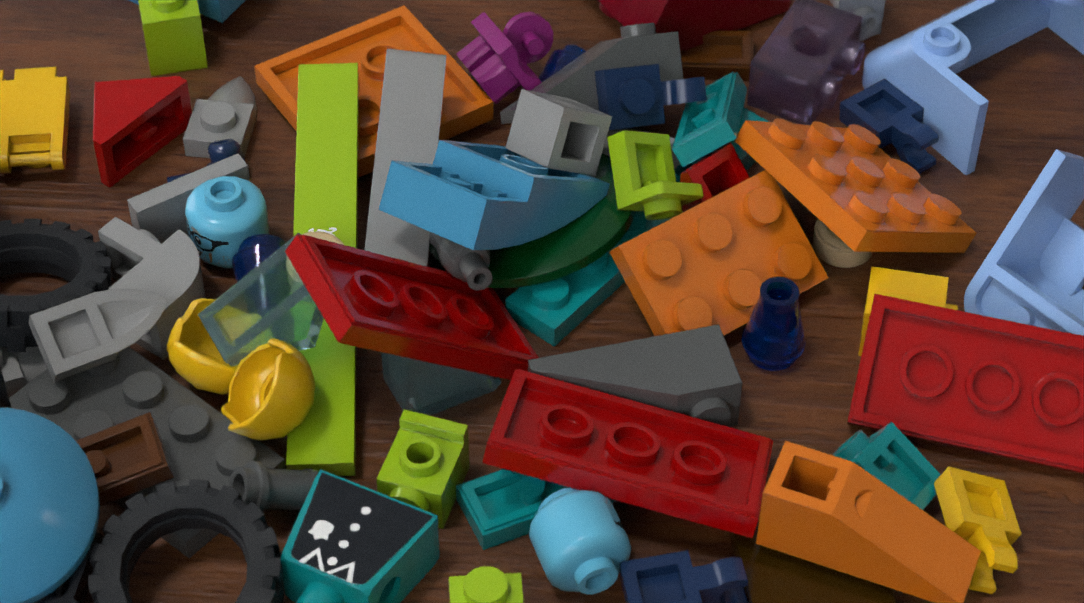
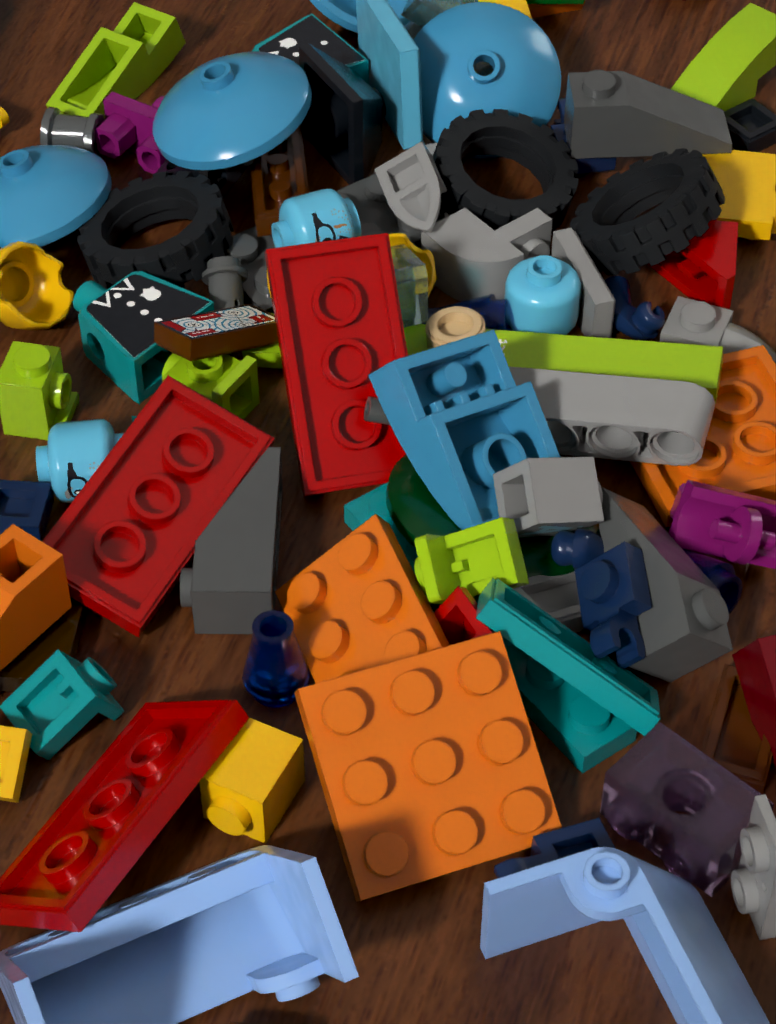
camera: 105 degrees right, 0 degrees up
(53, 99) = (687, 199): none -> black tyre
(189, 391) = (315, 218): none -> medium azure head
(370, 450) = (216, 332): none -> tile

